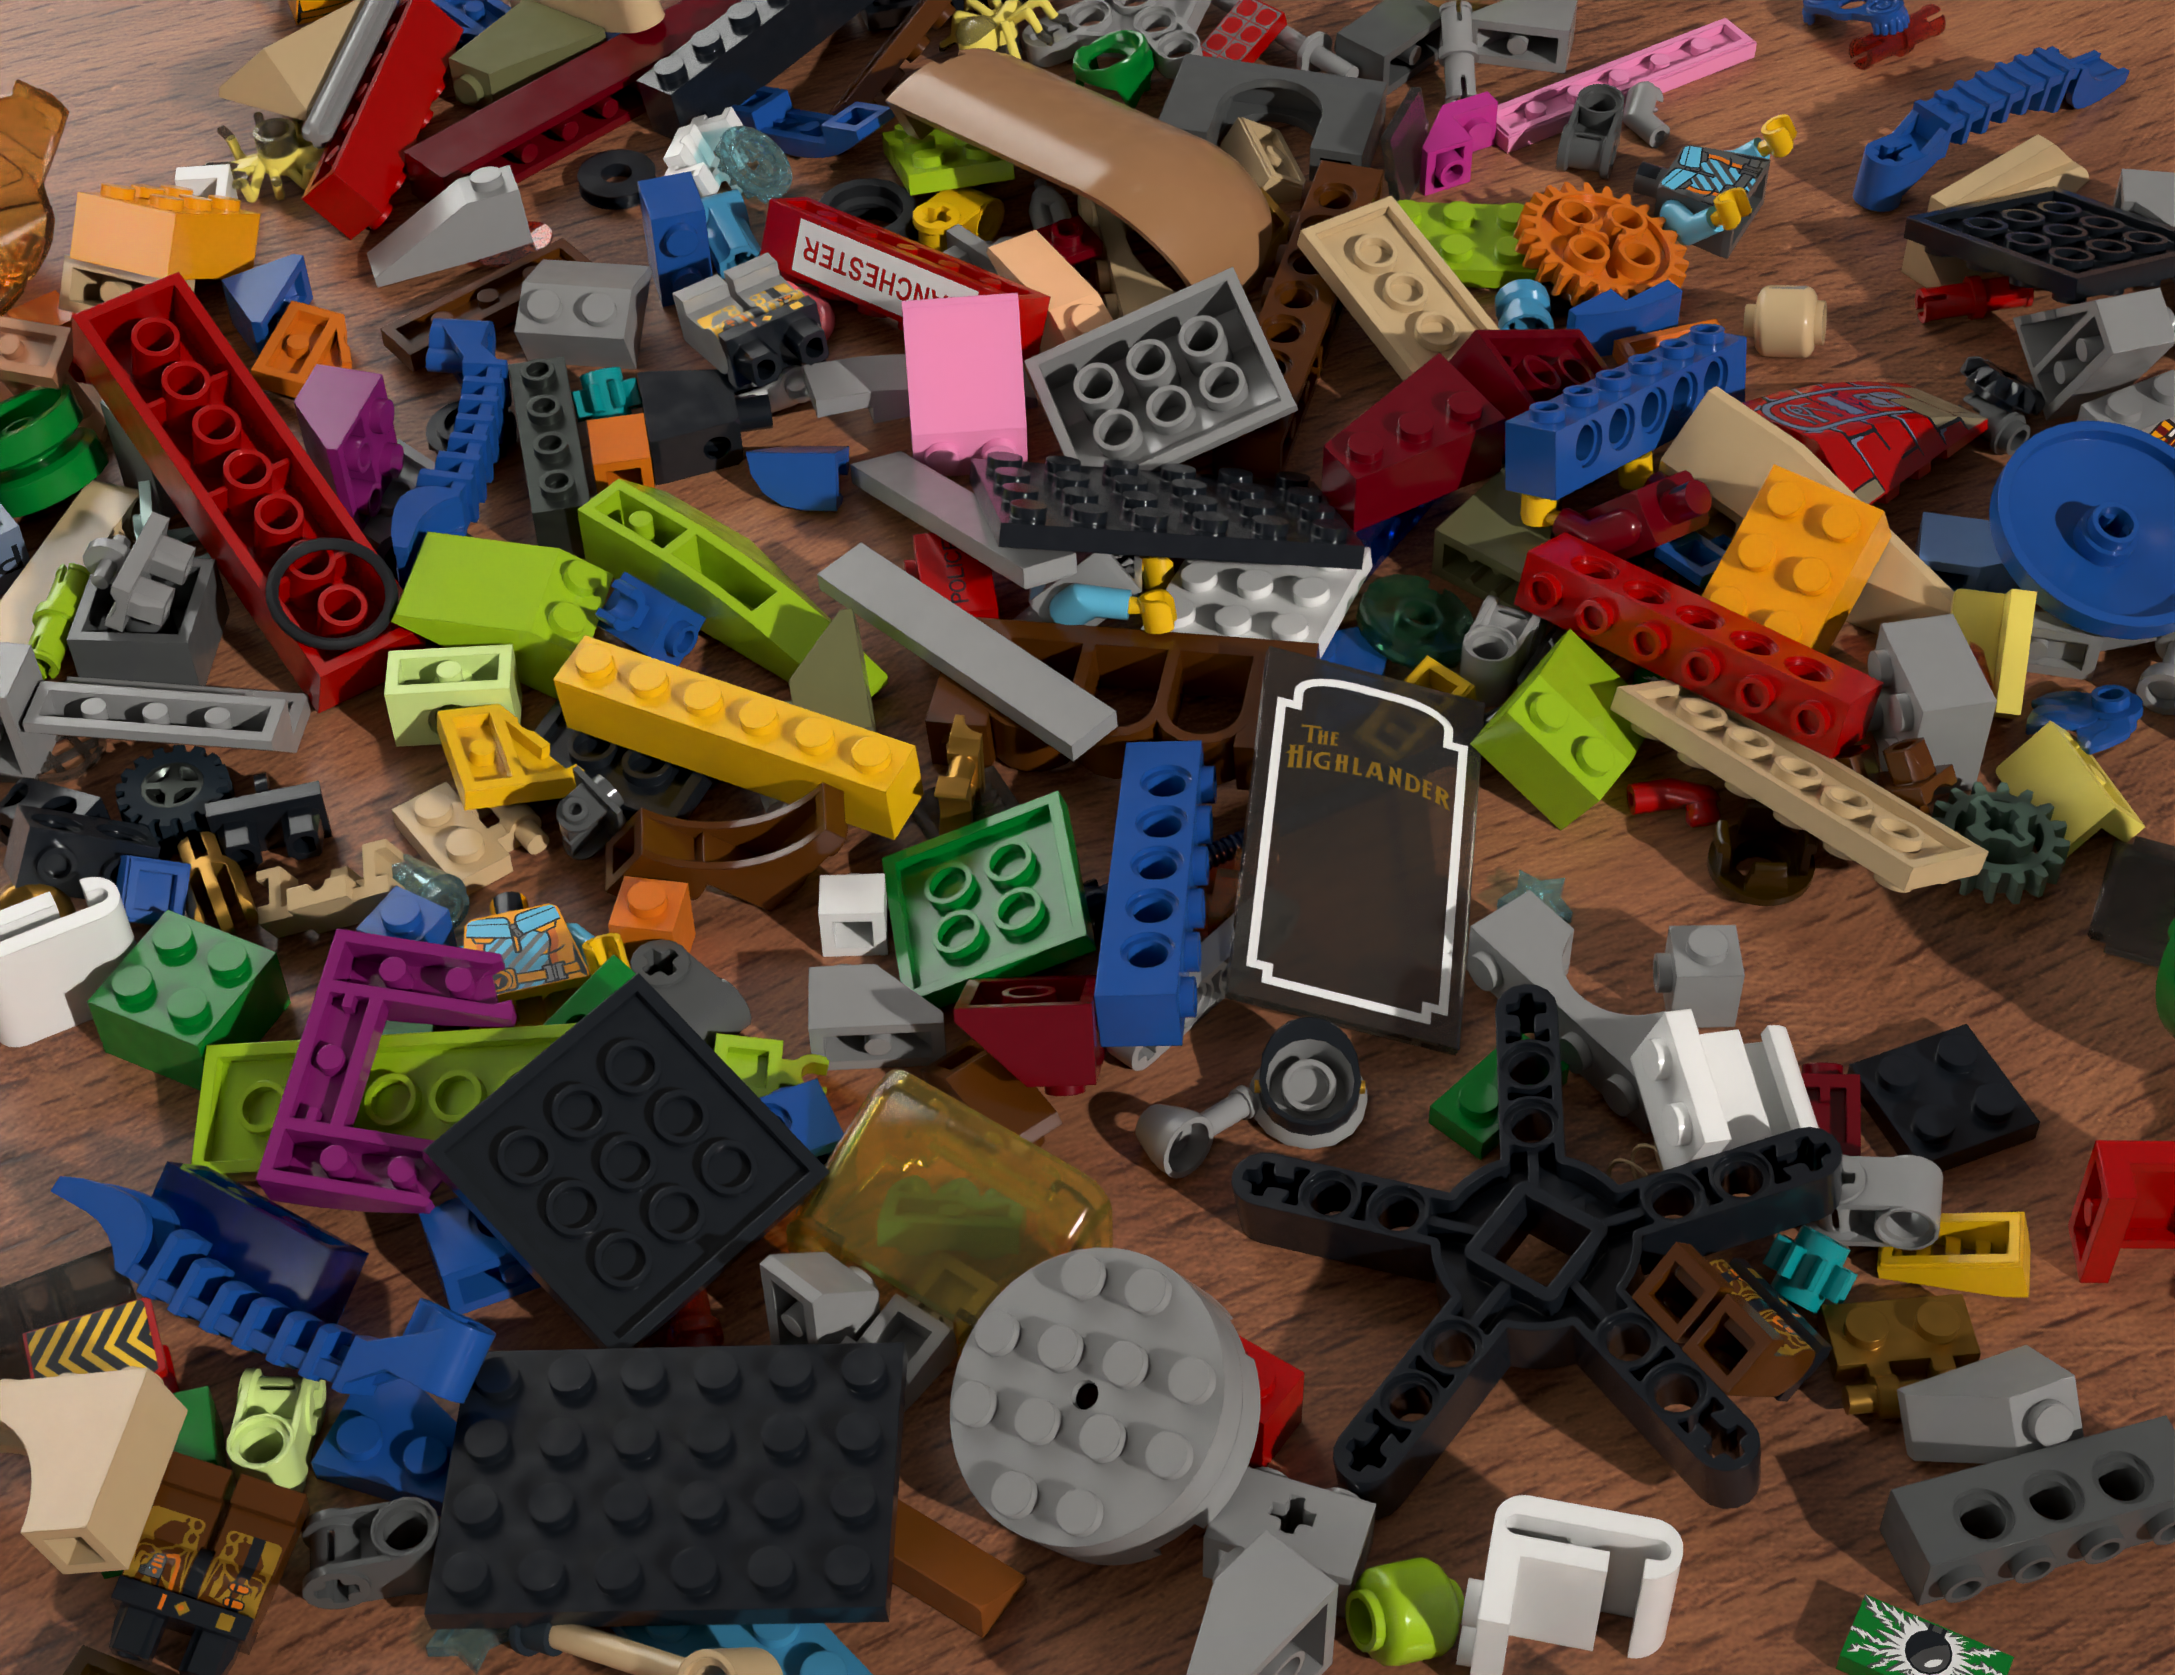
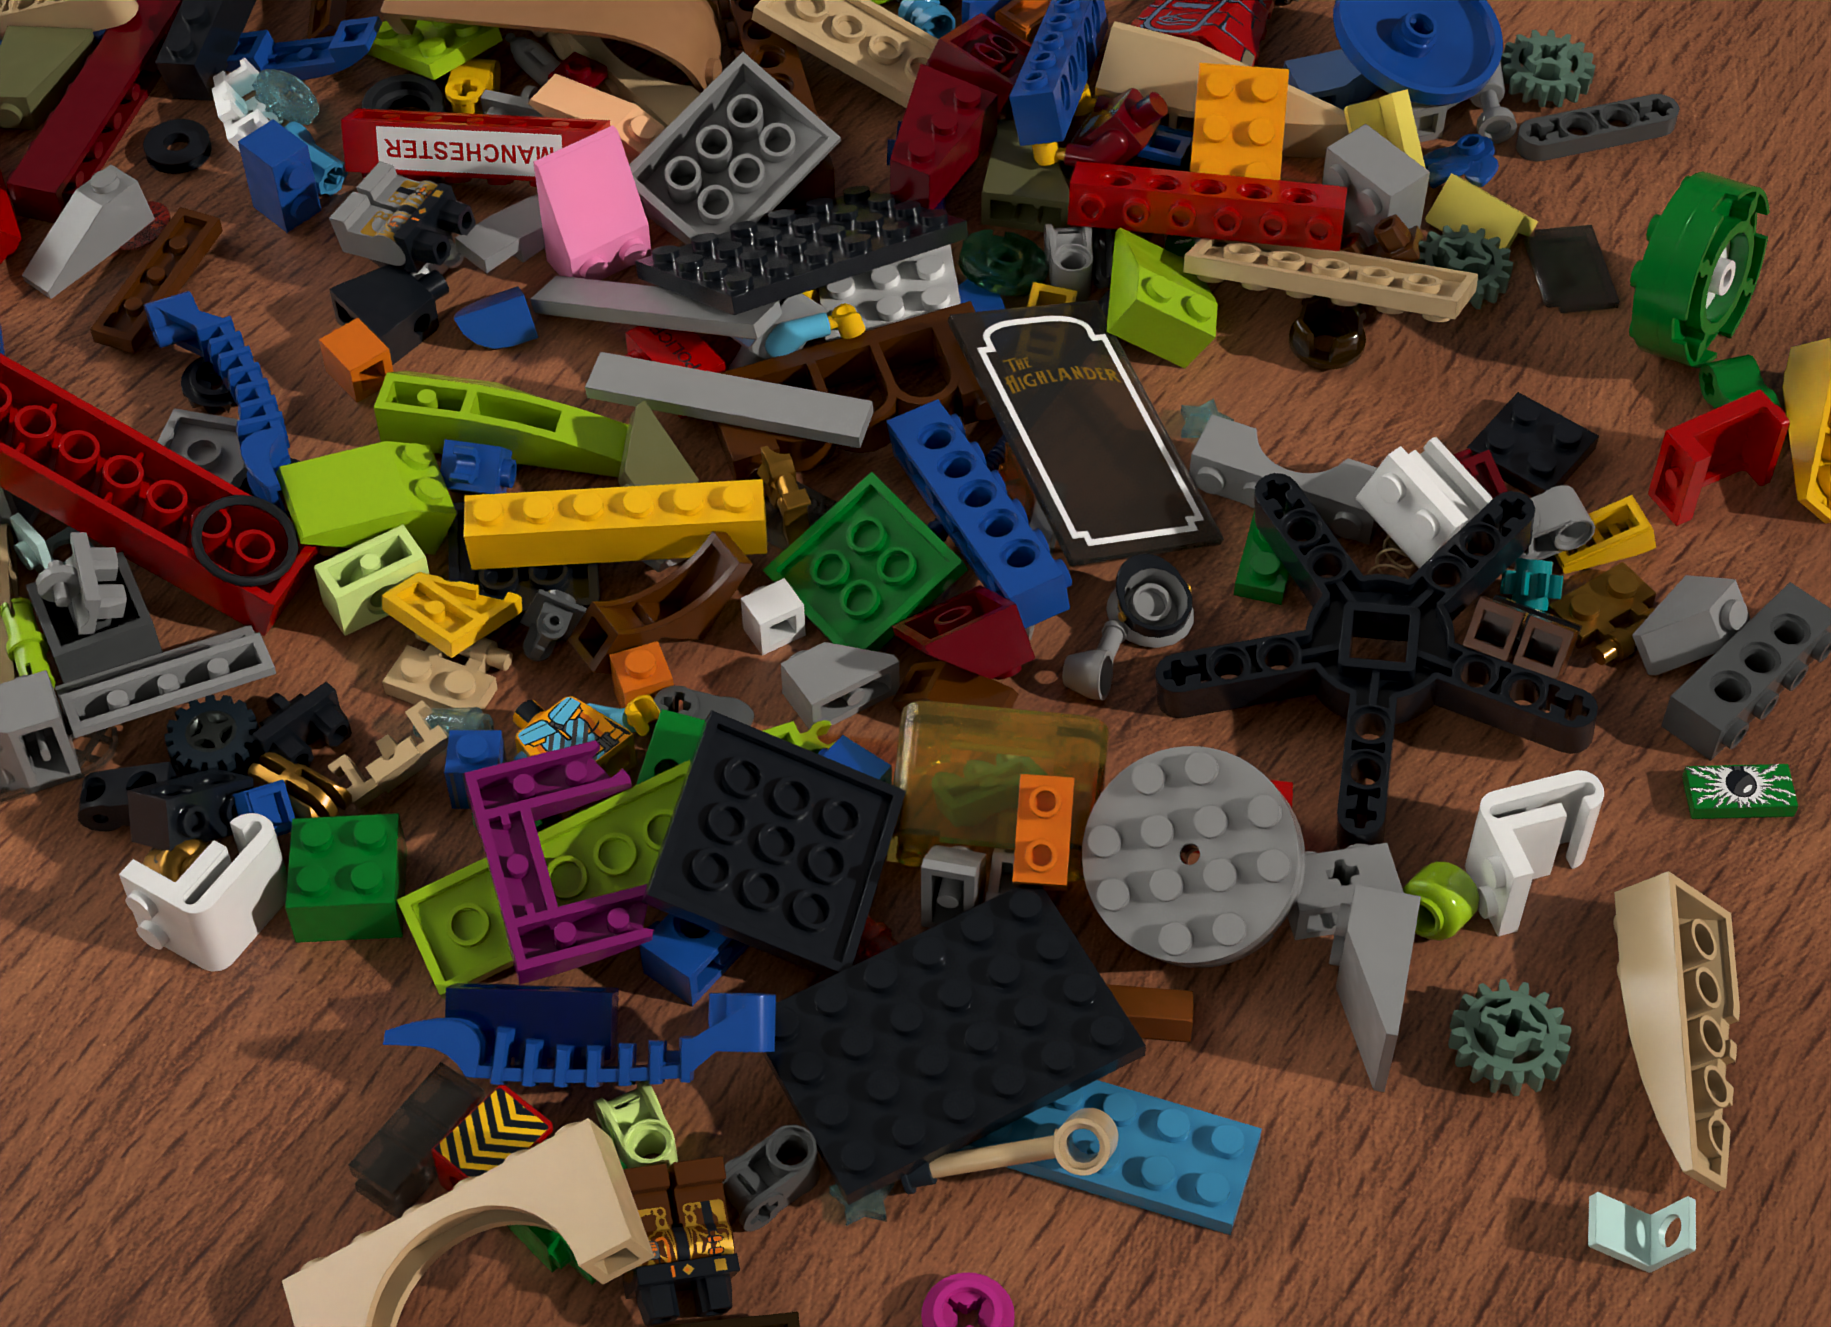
camera: 30 degrees left, 5 degrees up
(298, 343) = (46, 356): orange wing -> none
(350, 436) = (156, 406): magenta slope -> none
(390, 1445) = (727, 1105): blue wing -> none
(550, 451) = (308, 378): pearl dark grey brick -> none
(583, 312) = (246, 258): light grey slope -> none
(605, 395) = (312, 318): teal gear -> none
(941, 1291) = (1043, 831): none -> orange brick
(1673, 794) = (1246, 313): red arm -> none
(1701, 973) = (1347, 426): light grey brick -> none

